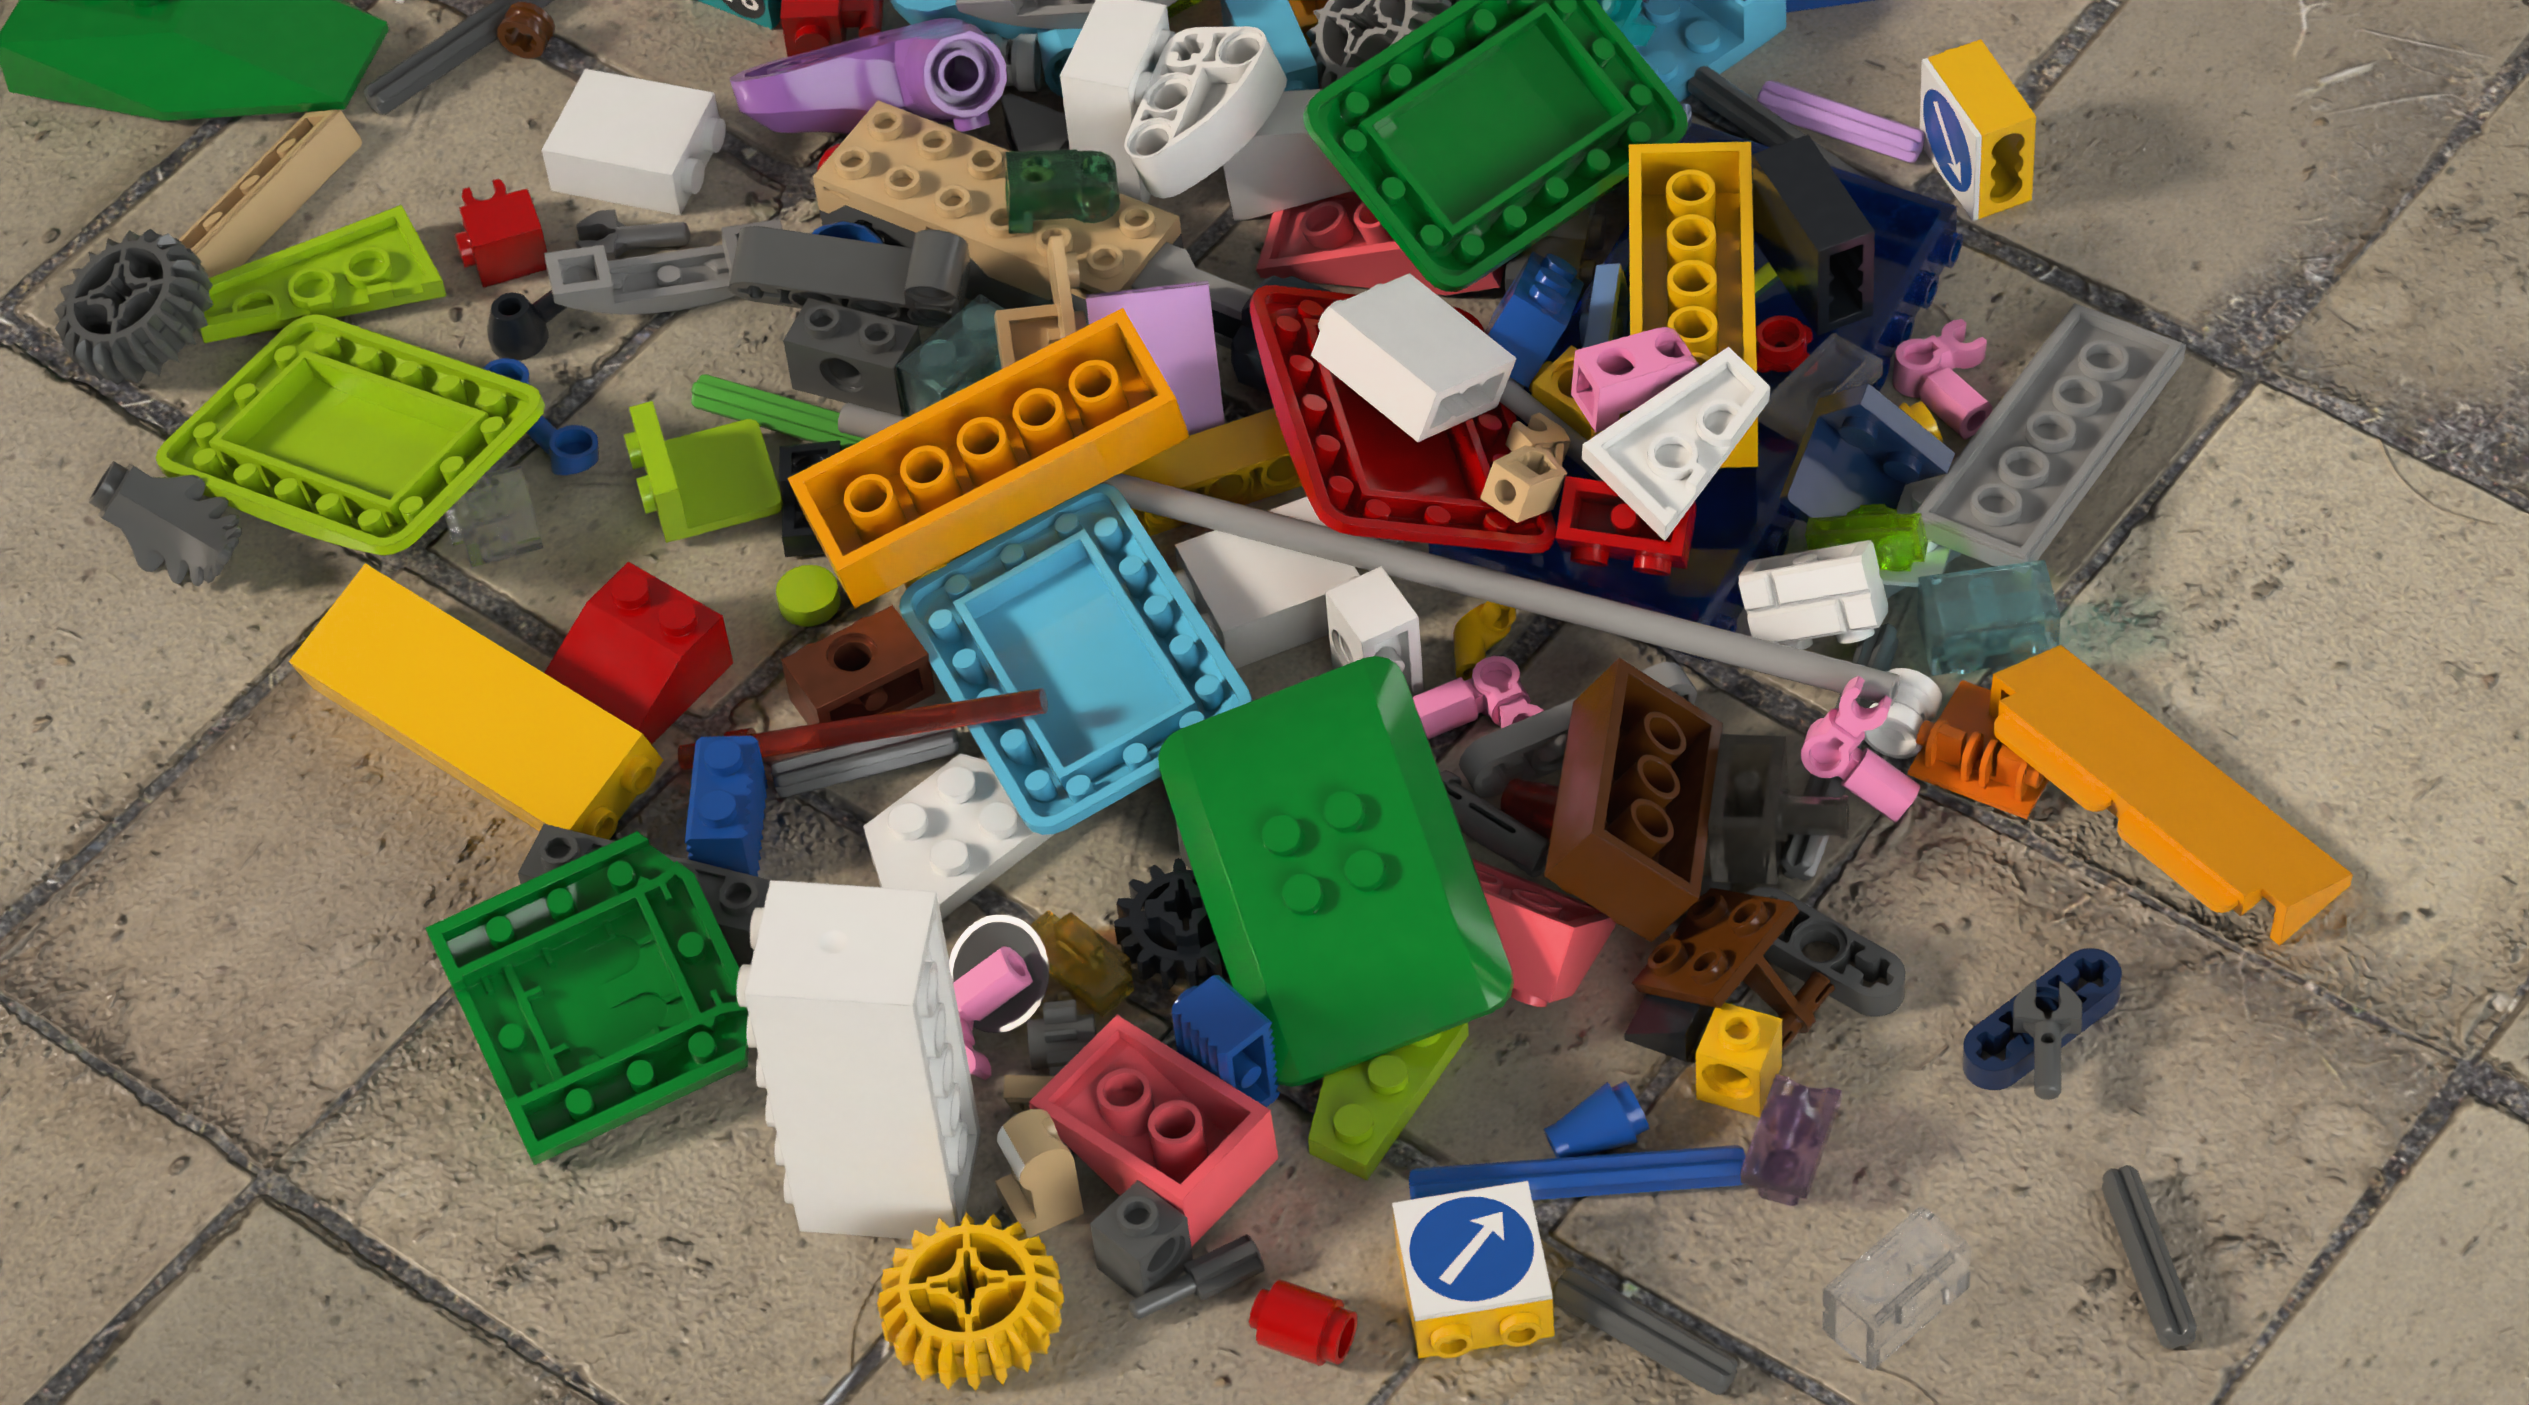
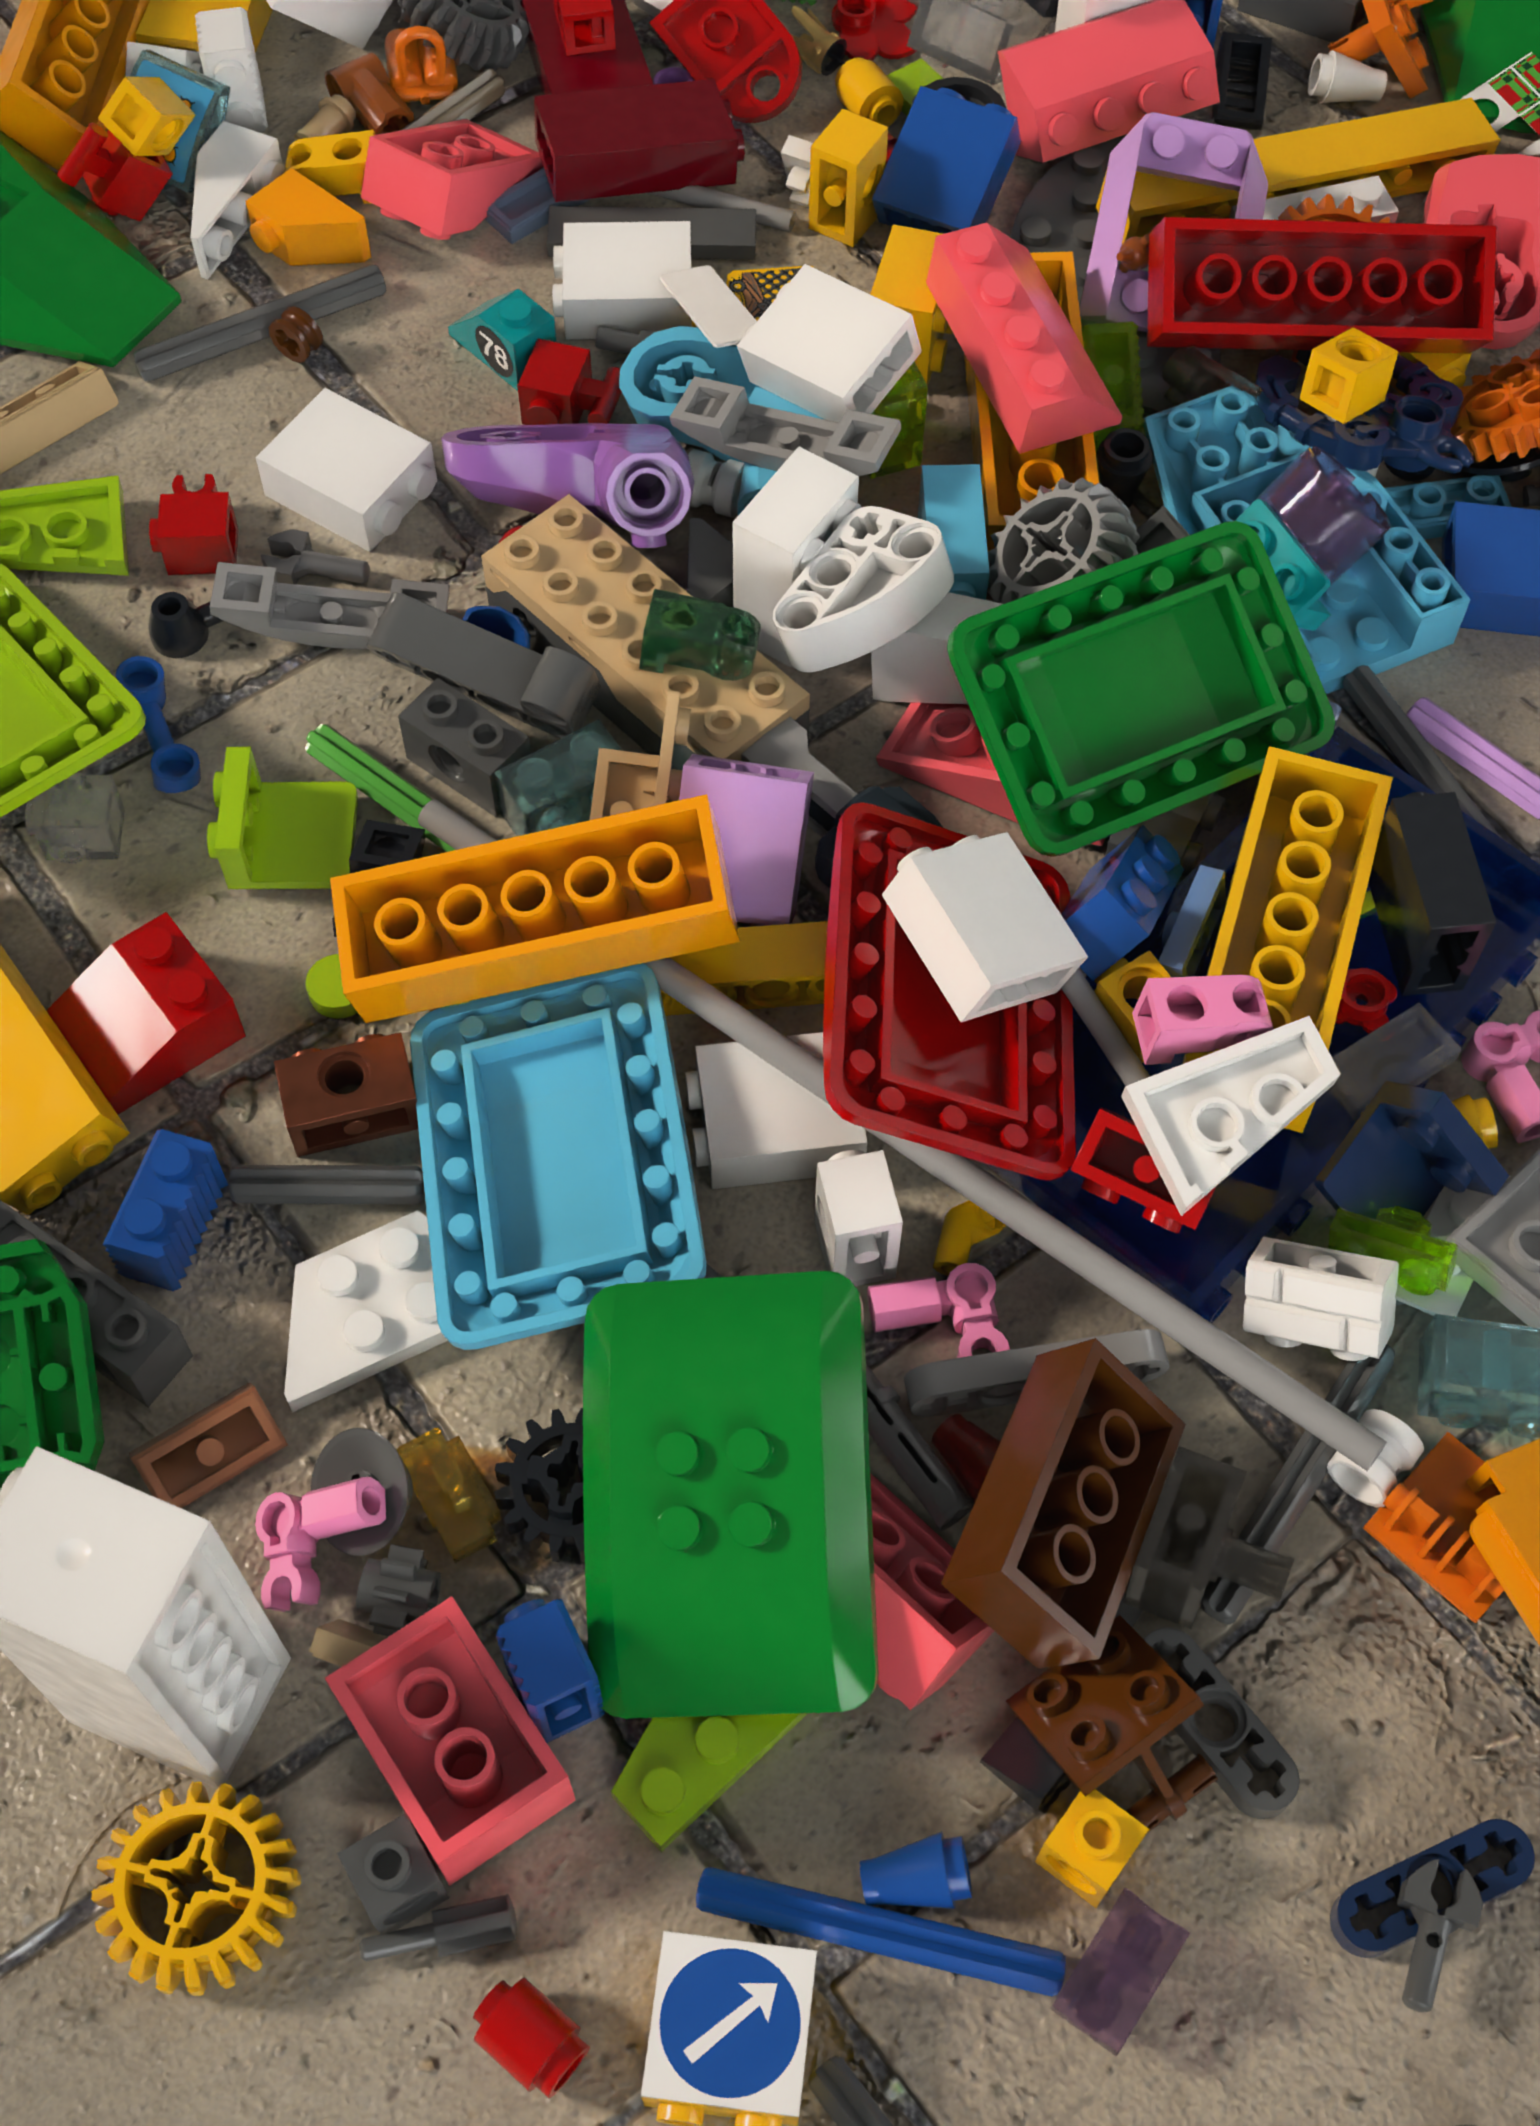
camera: 10 degrees right, 10 degrees up
(888, 724) = (338, 1163): clear red bar -> none
(1043, 1176) = (314, 1756): tan leg -> none
(1532, 474) = (1066, 1095): tan piece -> none
(1833, 751) = (1297, 1495): bright pink bar -> none

